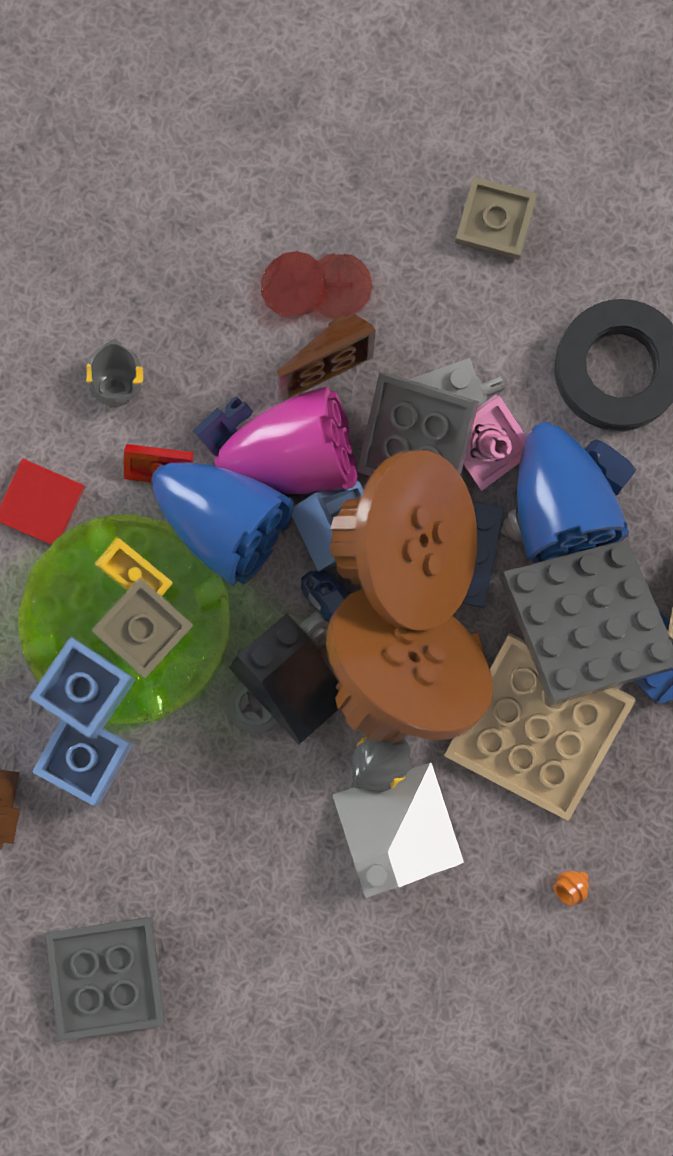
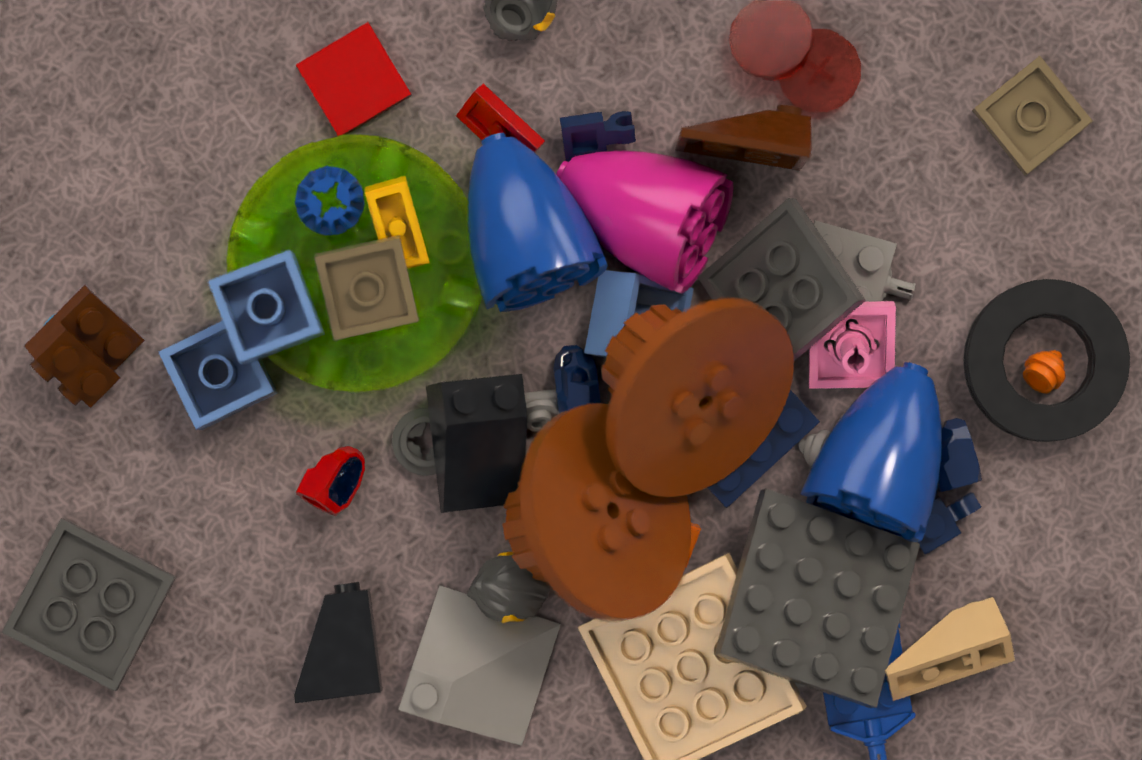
camera: 30 degrees right, 5 degrees up
(89, 598) = (336, 219): none -> blue gear
(211, 775) = (333, 480): none -> red rock
(298, 884) = (342, 648): none -> black slope
(623, 373) = (1044, 371): none -> orange plate
(633, 516) = (942, 521): none -> dark blue plate

